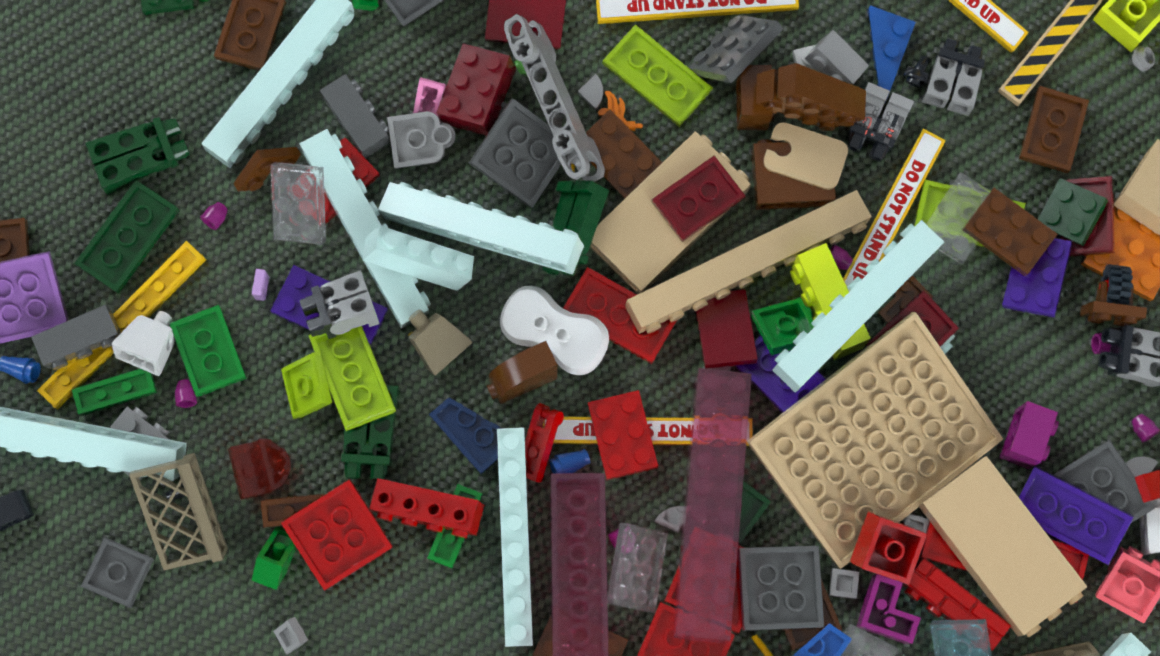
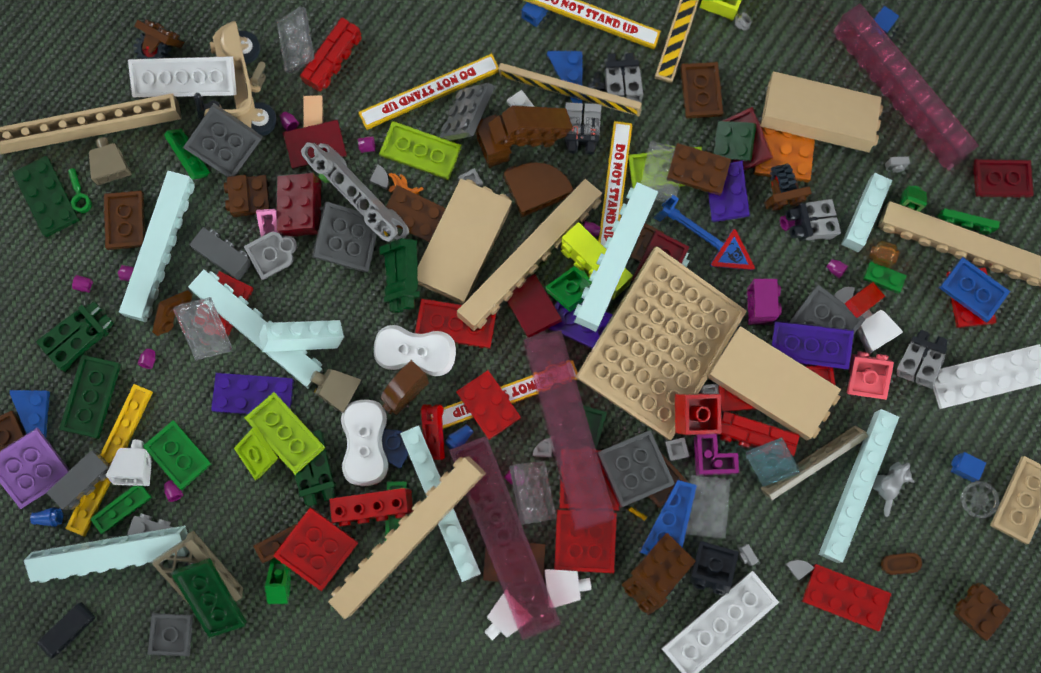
camera: 20 degrees left, 0 degrees up
(50, 225) = (32, 409): none -> blue wing
(168, 90) = (82, 283): none -> magenta hose
(183, 544) = (209, 598): none -> dark green plate
(227, 96) = (125, 273): none -> magenta hose
(259, 467) = (243, 523): clear red slope -> none
(260, 285) = (197, 395): lavender tile -> none
(290, 635) = (309, 631): light grey plate -> none
(341, 306) = (259, 389): light grey hips -> none
(415, 52) = (246, 194): none -> reddish brown plate
(441, 442) = (364, 458): none -> white plate
(457, 562) = (407, 536): none -> tan brick
(482, 227) = (337, 298): light aqua brick -> none
(591, 43) = (366, 144): none -> magenta hose
(698, 198) = (479, 223): dark red tile -> none
(712, 133) = (472, 175): none -> light grey tile
(812, 157) = (547, 166): tan piece -> none
(836, 59) = (538, 94): light grey brick -> none
(885, 69) = (570, 89): none -> tan tile
(1011, 356) = (731, 252): none -> blue piece

